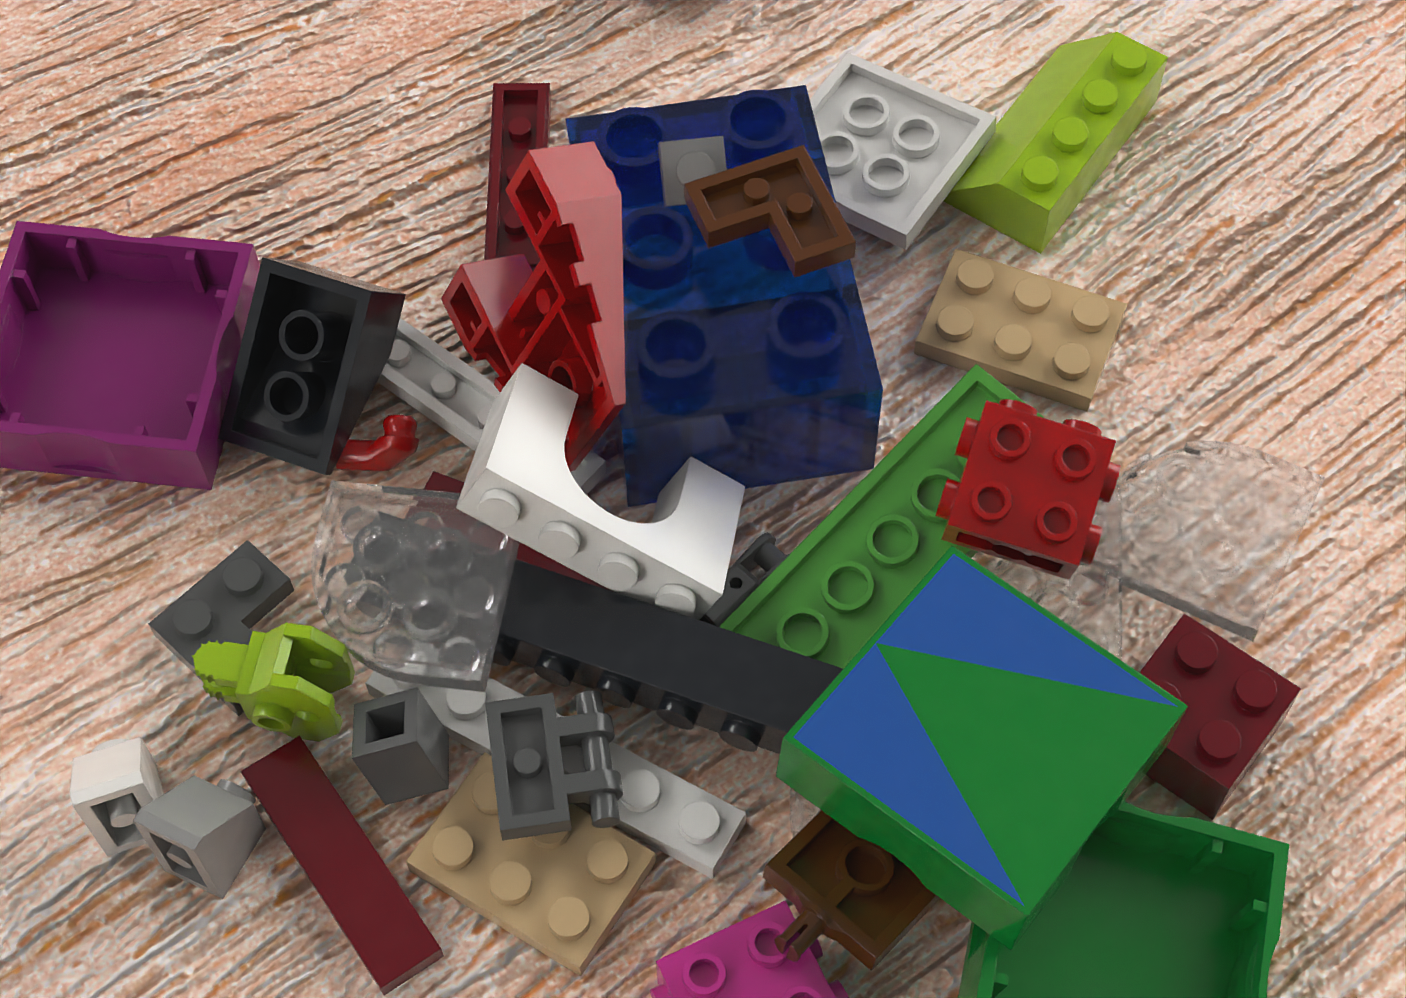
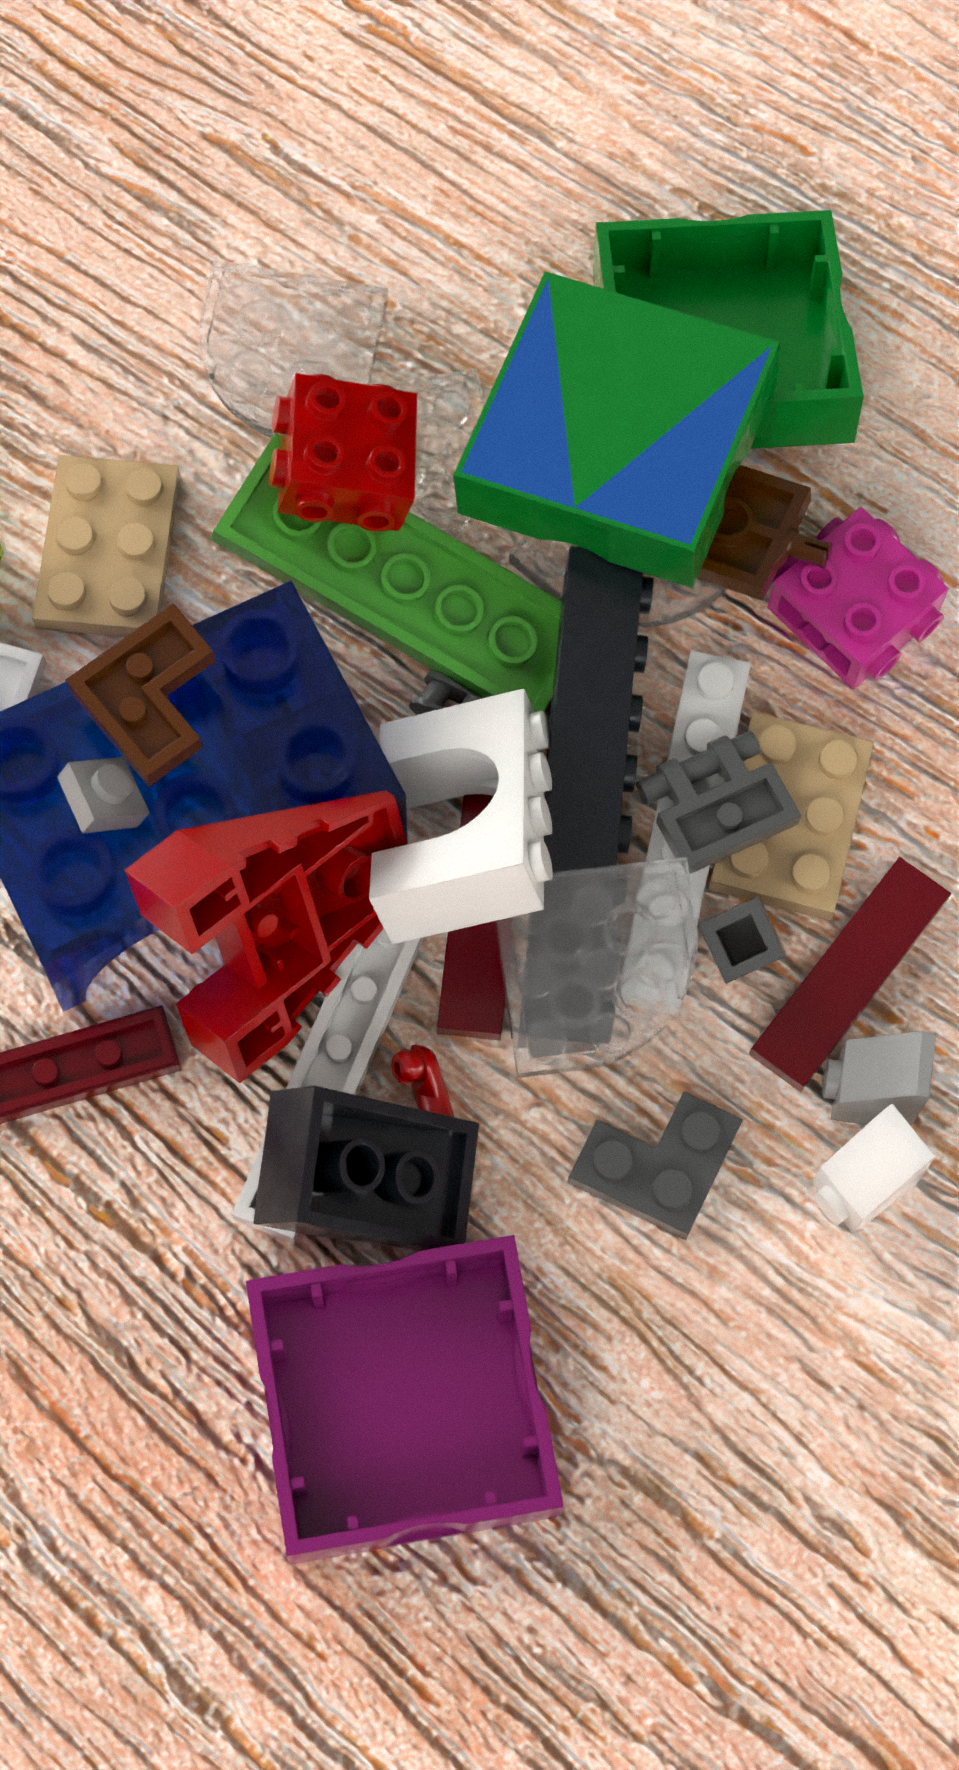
camera: 110 degrees left, 10 degrees up
(280, 678) = (722, 1065): lime hinge -> none
(1229, 714) = (472, 310): dark red brick -> none

